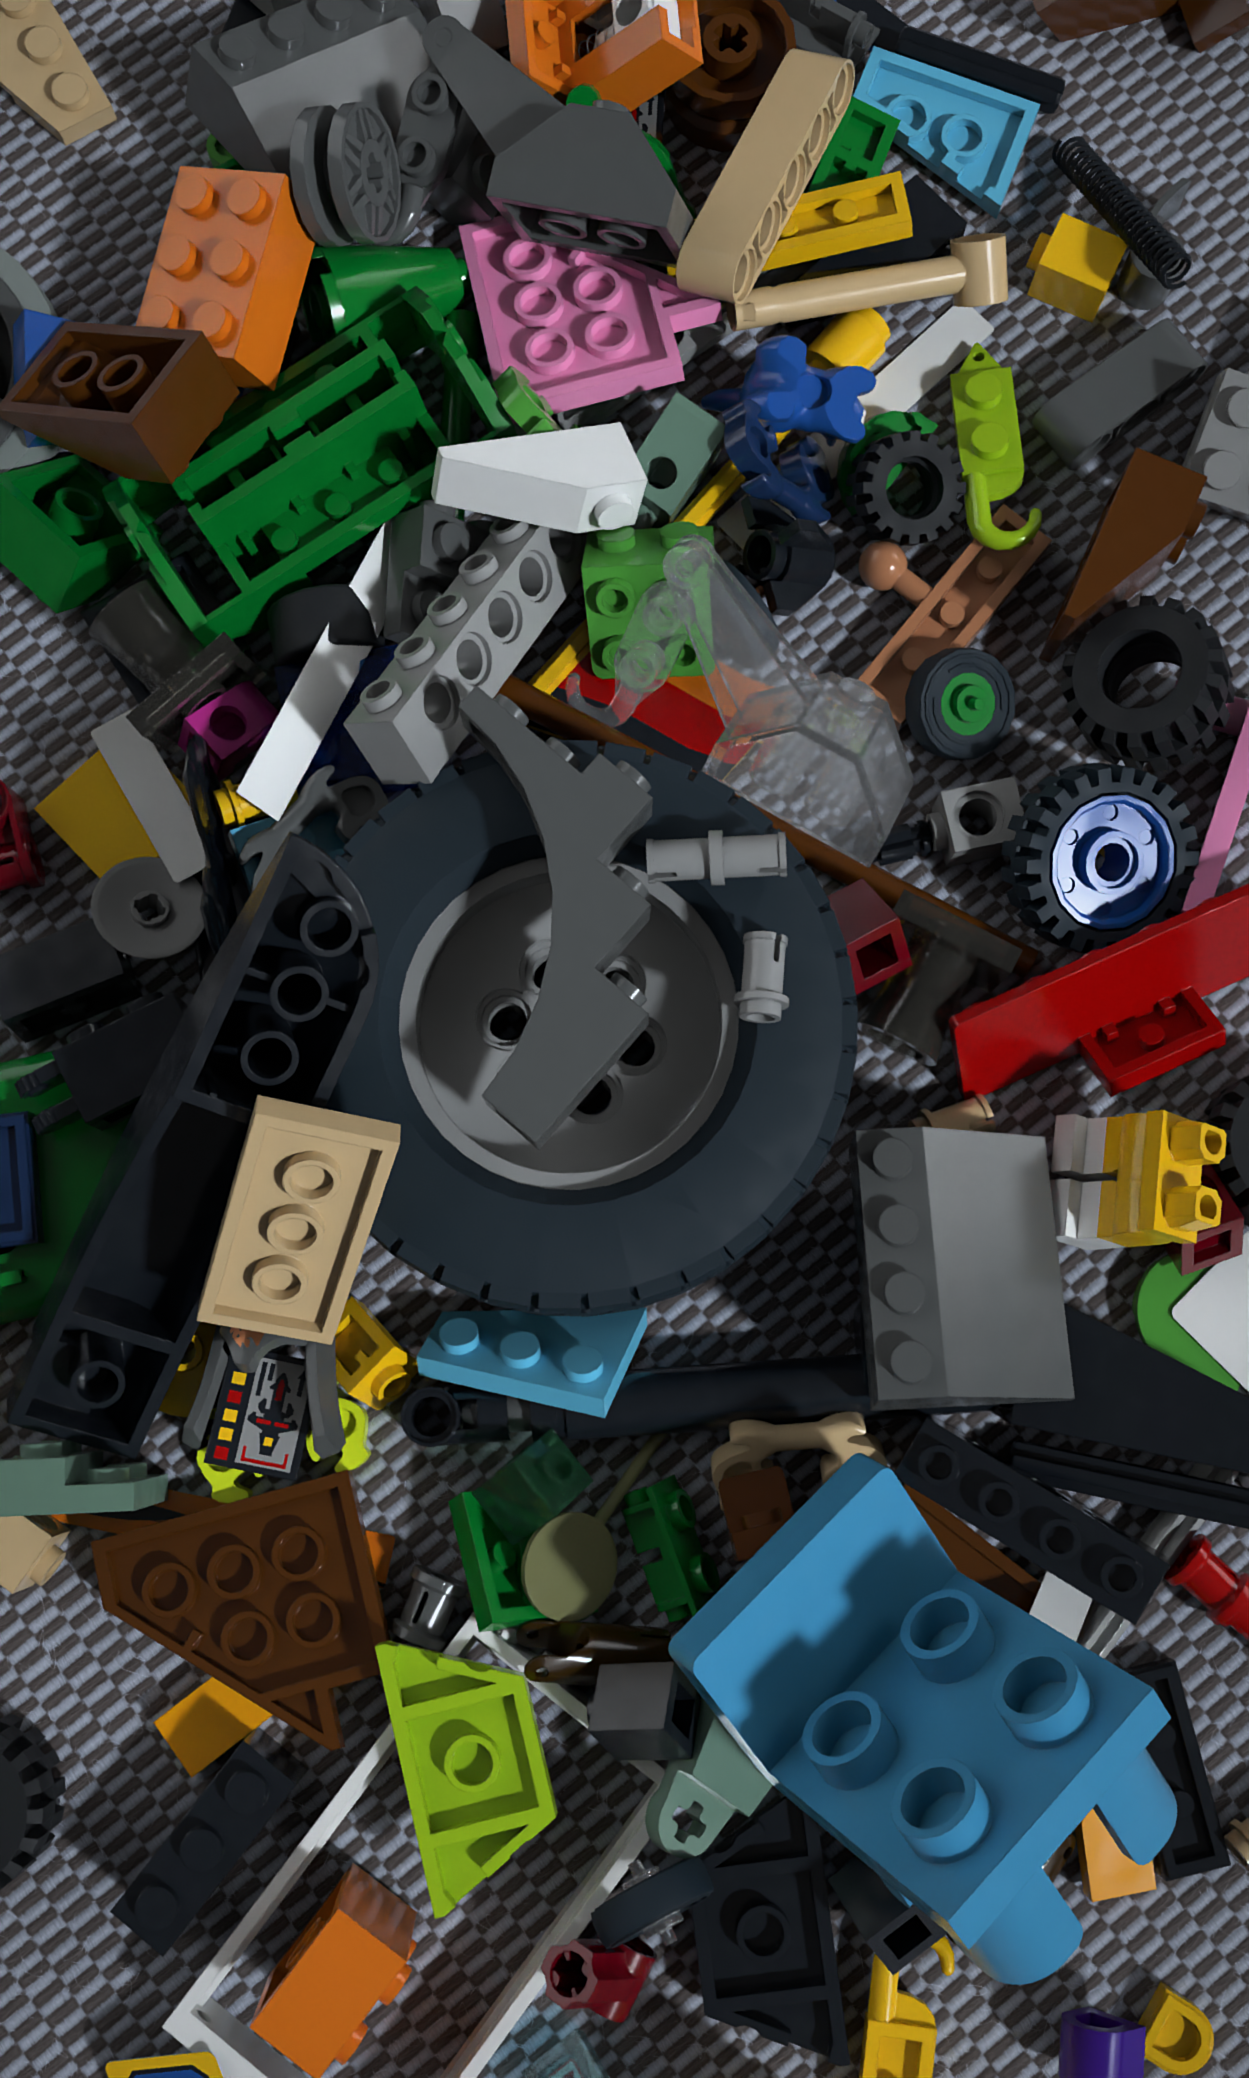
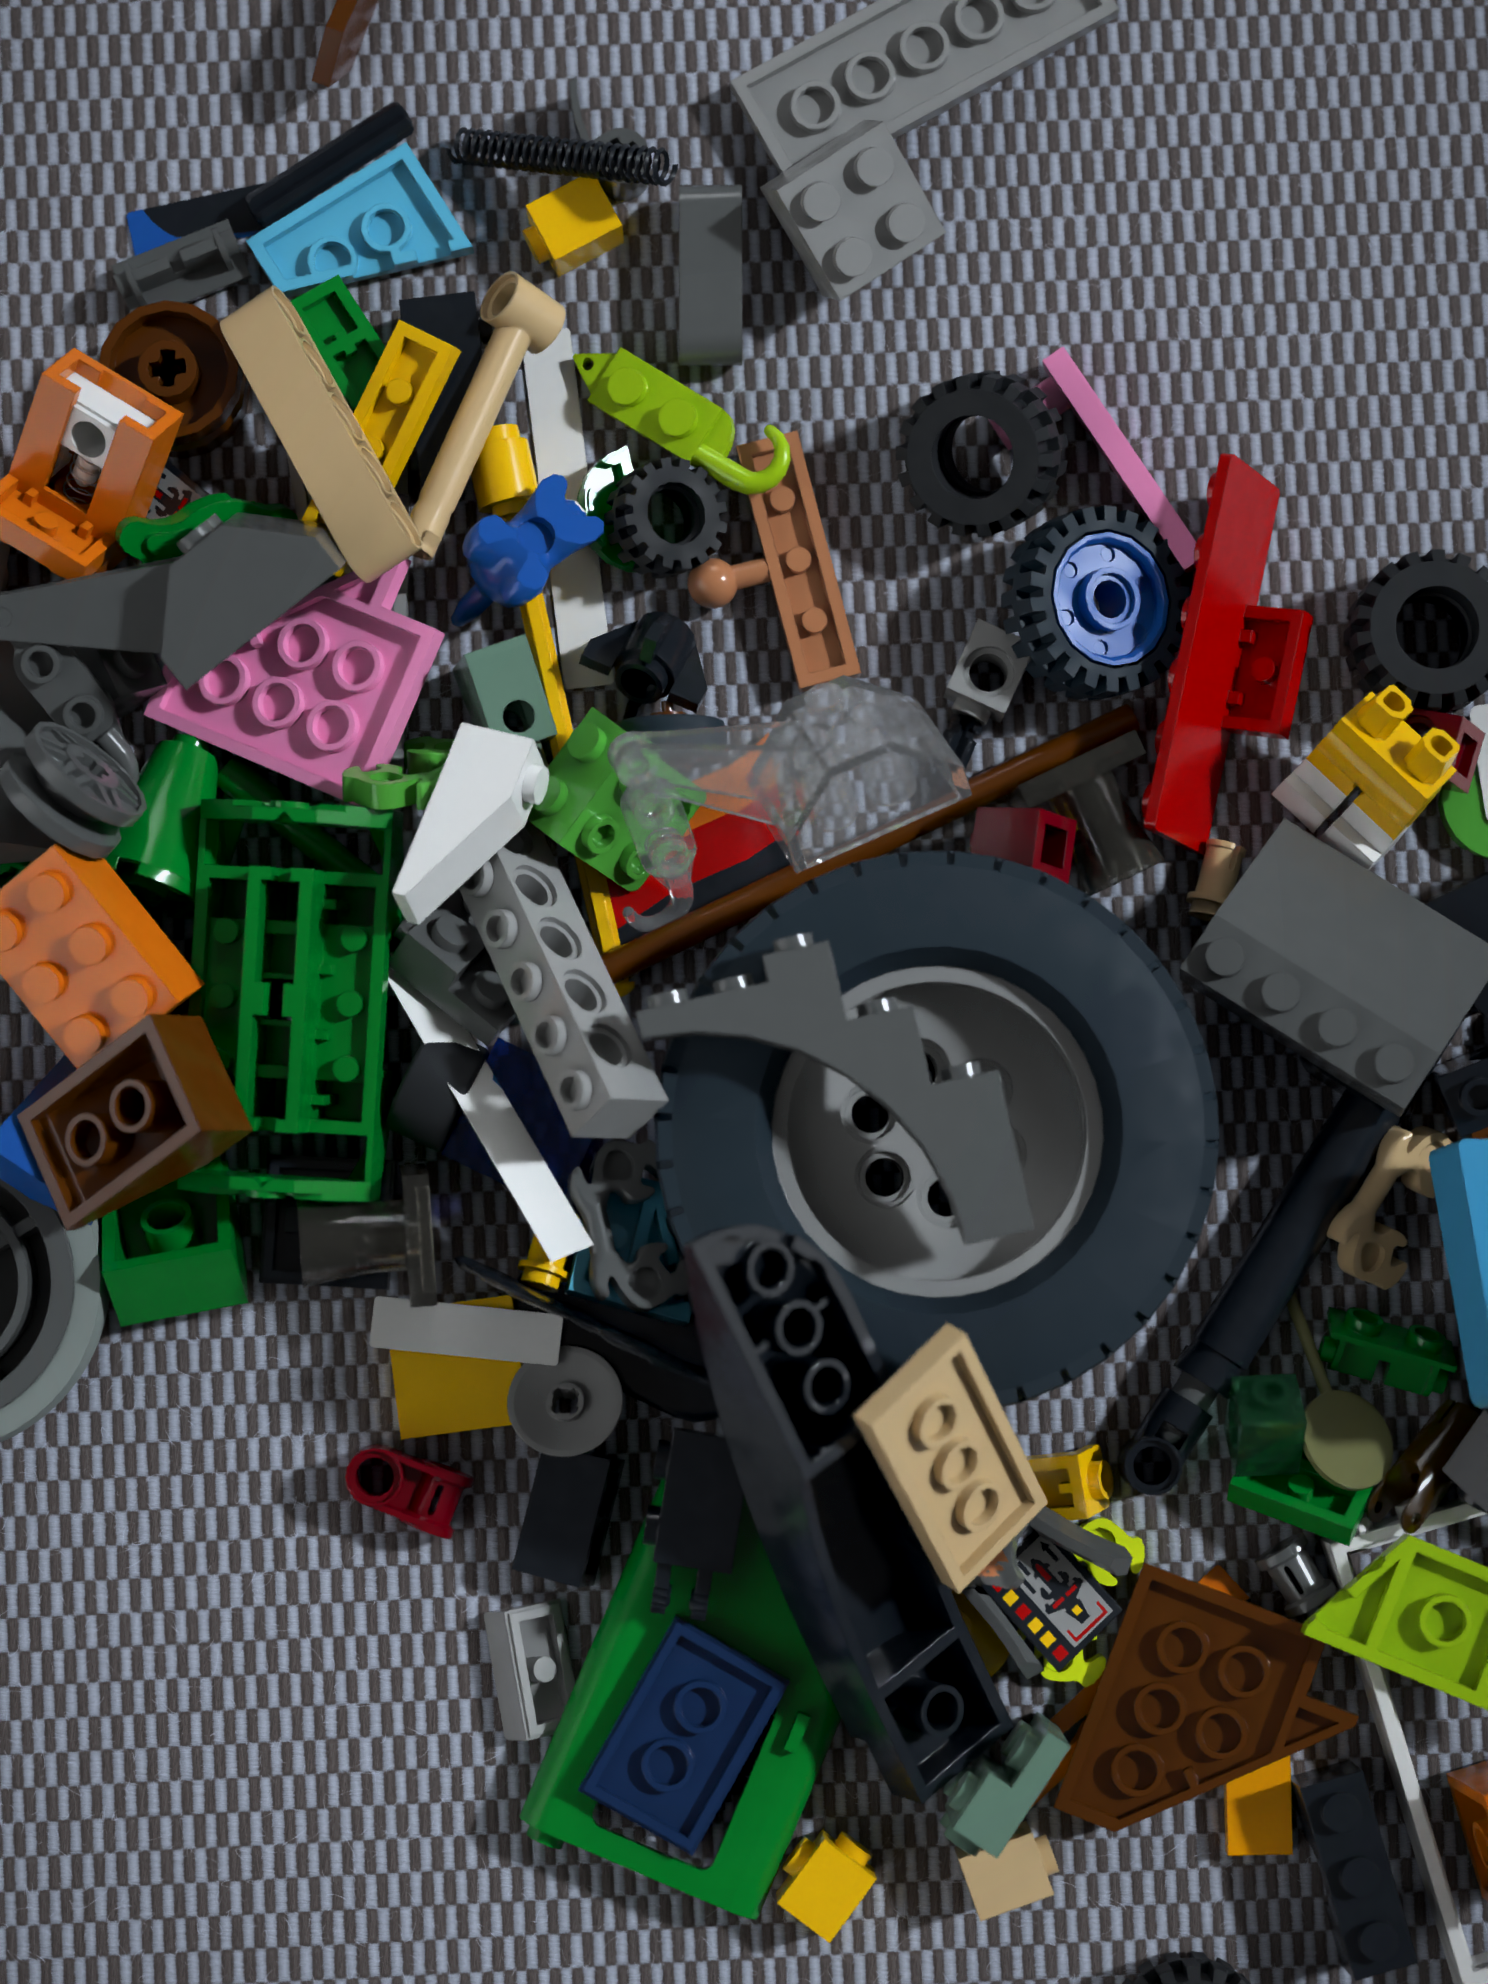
camera: 60 degrees left, 5 degrees up
(231, 726) = (457, 1224): dark pink leg -> none
(535, 1357) = (1167, 1355): medium azure wing -> none
(716, 857) = (904, 922): light grey pin -> none
(754, 1508) = (1411, 1264): reddish brown slope -> none
(762, 978) = (1025, 957): light grey pin -> none
(803, 466) = (581, 587): dark blue helmet -> none
(960, 703) = (880, 612): black wheel -> none
(1139, 529) = (848, 367): reddish brown slope -> none

